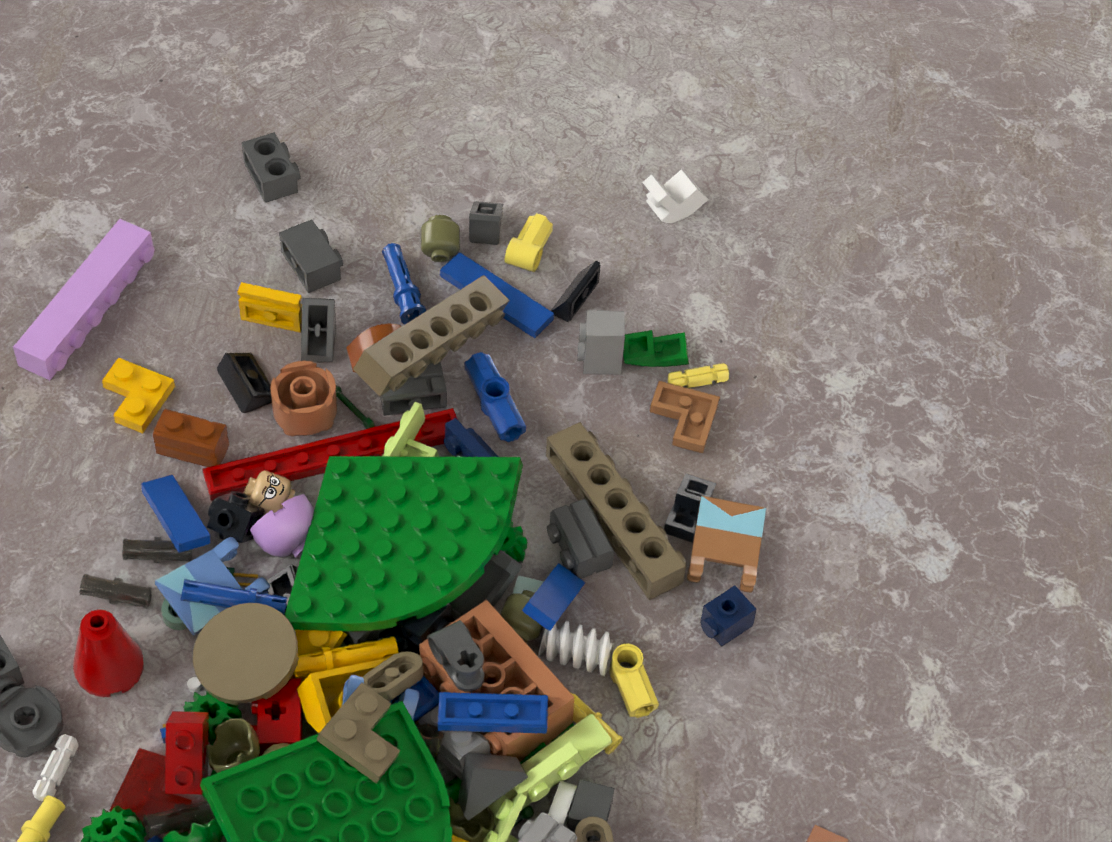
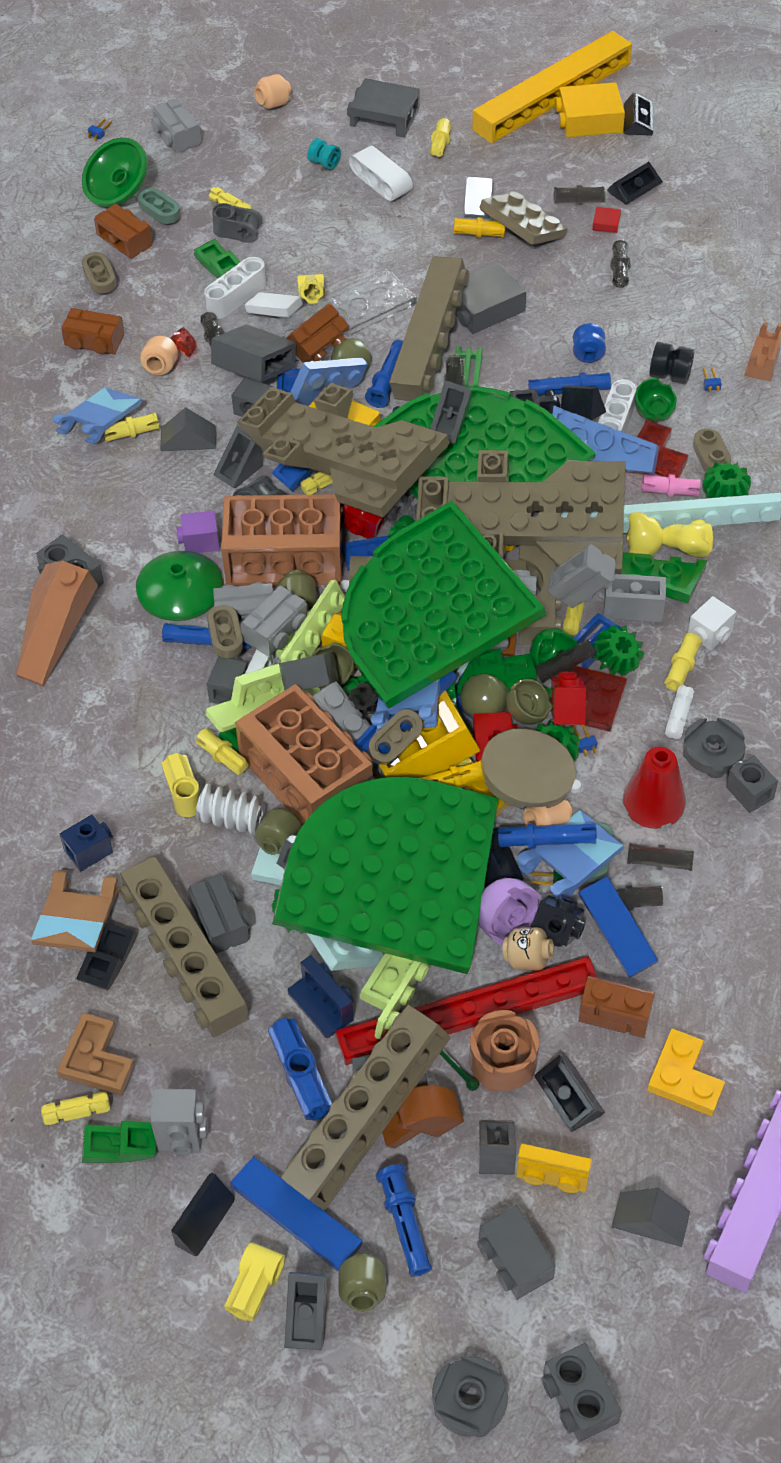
camera: 175 degrees left, 0 degrees up
(193, 282) = (651, 1215): none -> dark grey slope
(351, 733) = (423, 660): dark tan plate -> none
(357, 184) = (478, 1417): none -> dark grey plate
(458, 656) = (336, 738): dark grey piece -> none
(493, 712) = (306, 702): blue tile -> none
(553, 597) = (248, 837): blue tile -> none
(675, 198) = (67, 1354): white brick -> none

